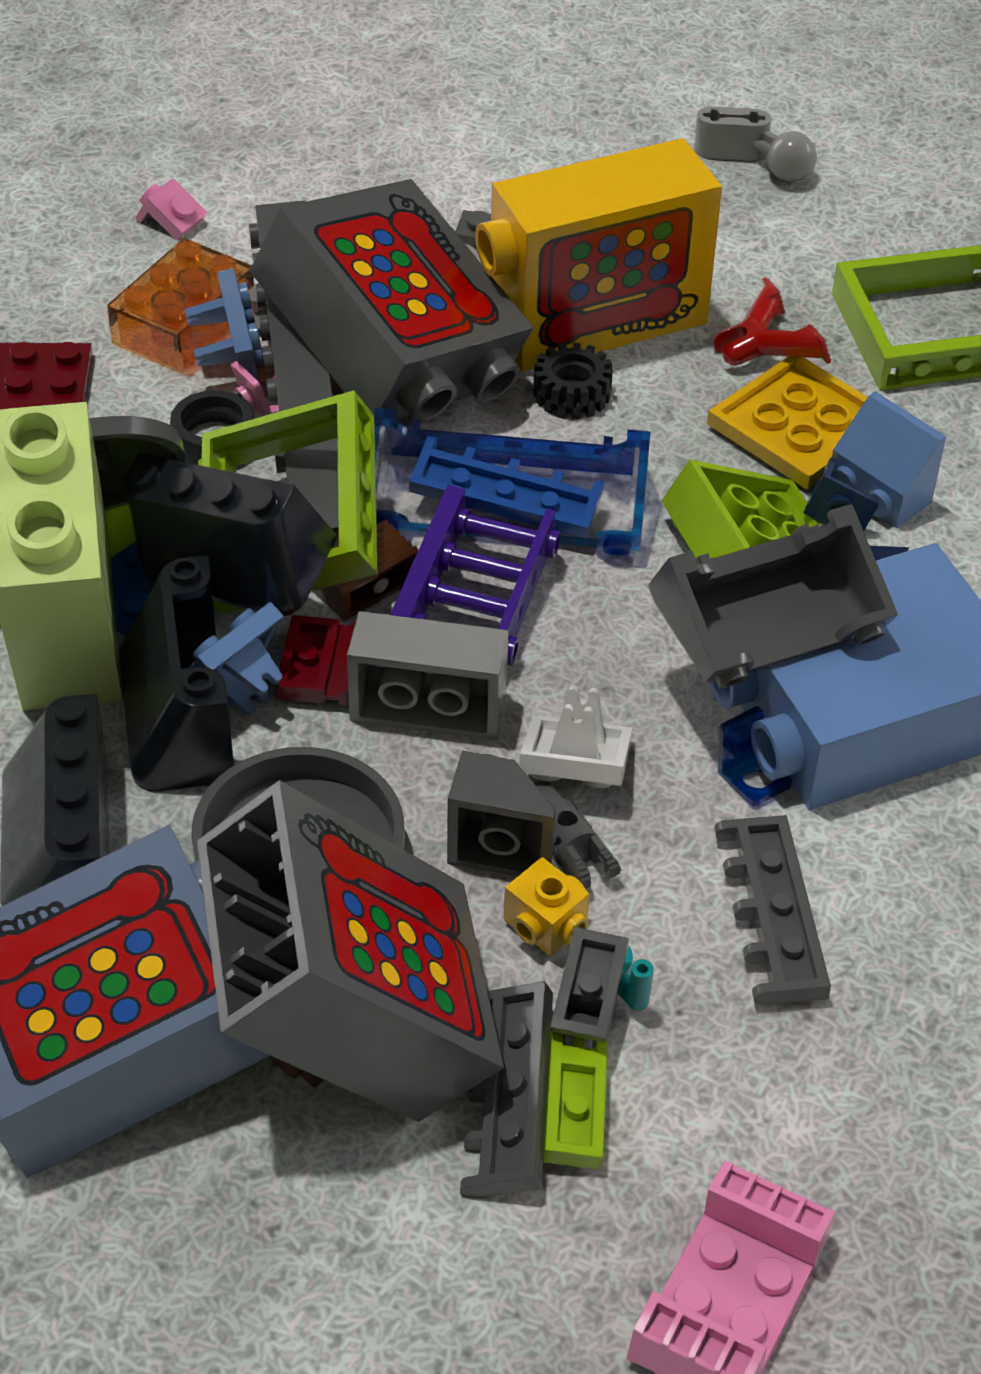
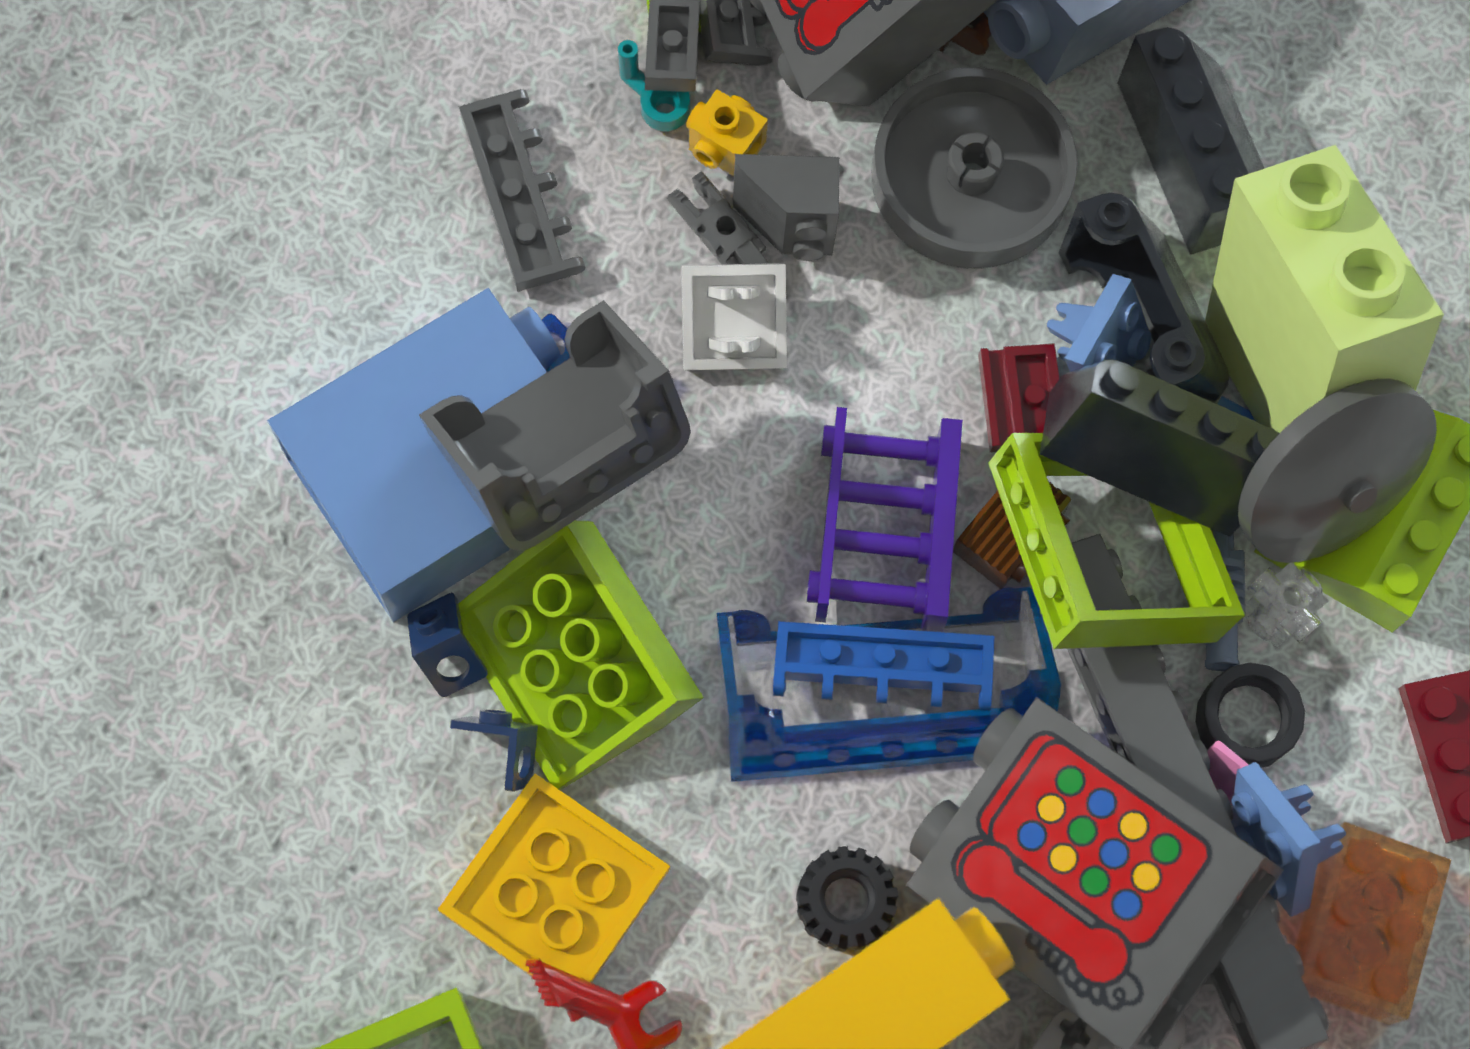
camera: 165 degrees right, 25 degrees up
(427, 675) = (902, 360): light grey brick -> none
(890, 458) = (445, 793): medium blue slope -> none

